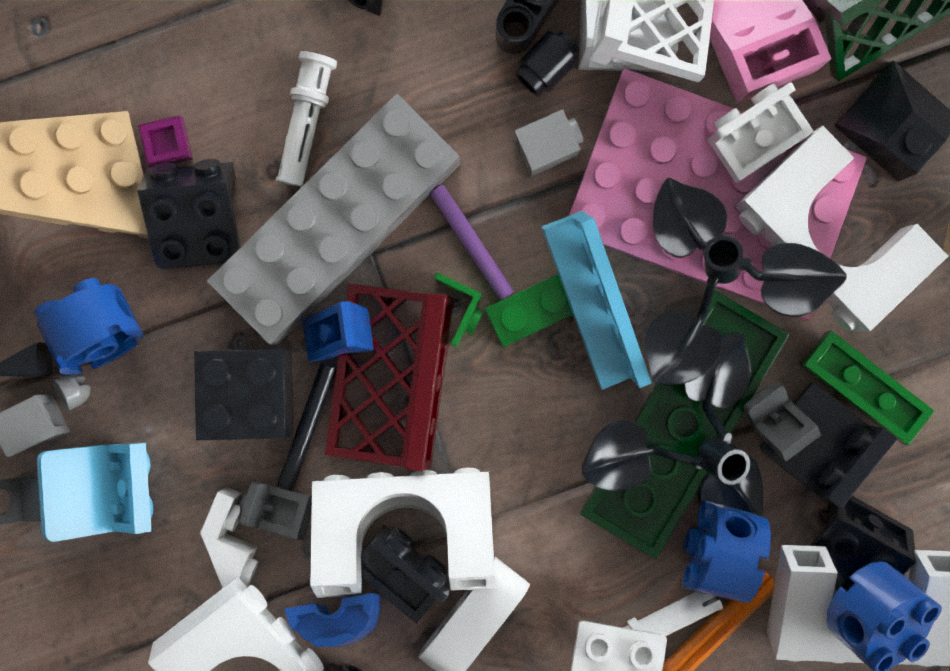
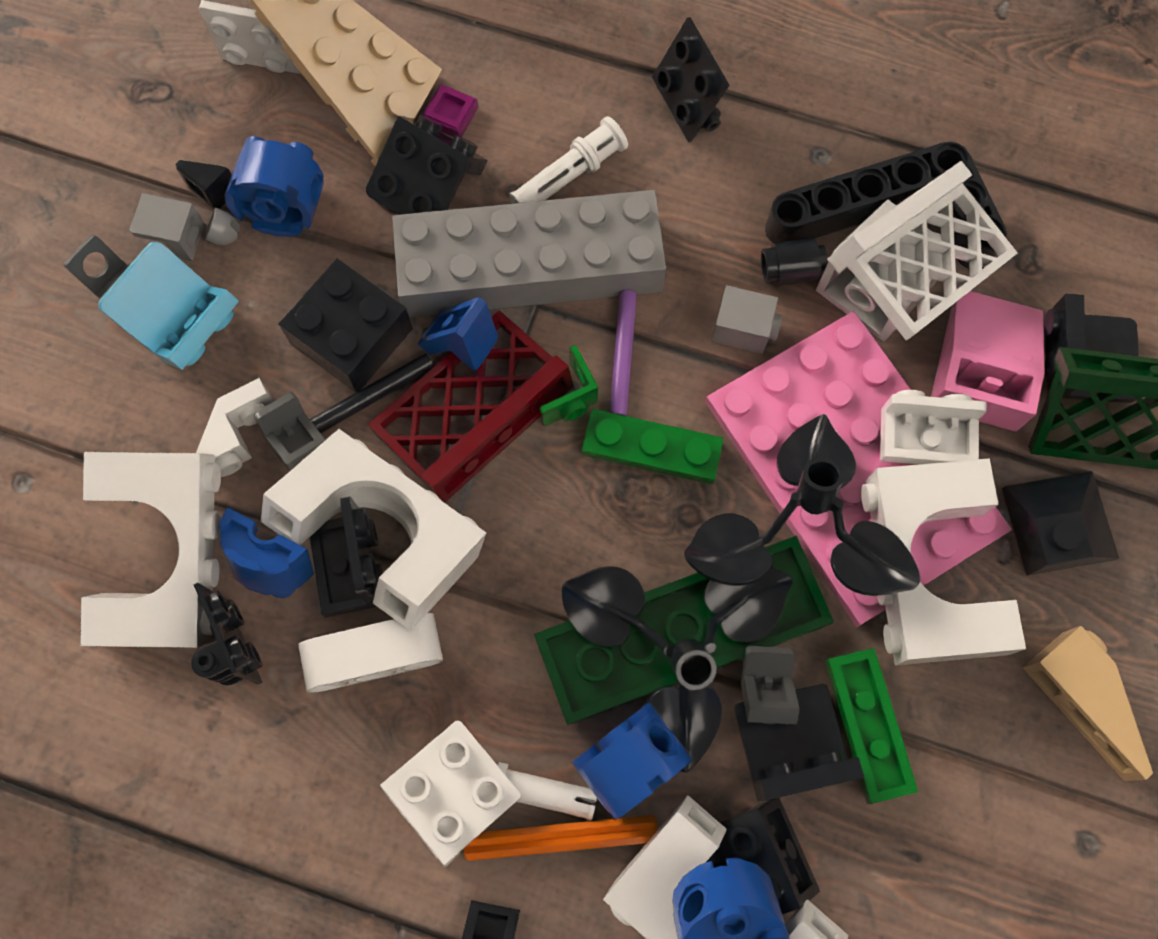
camera: 40 degrees right, 15 degrees down
(595, 300) = (685, 464): medium azure fence -> none

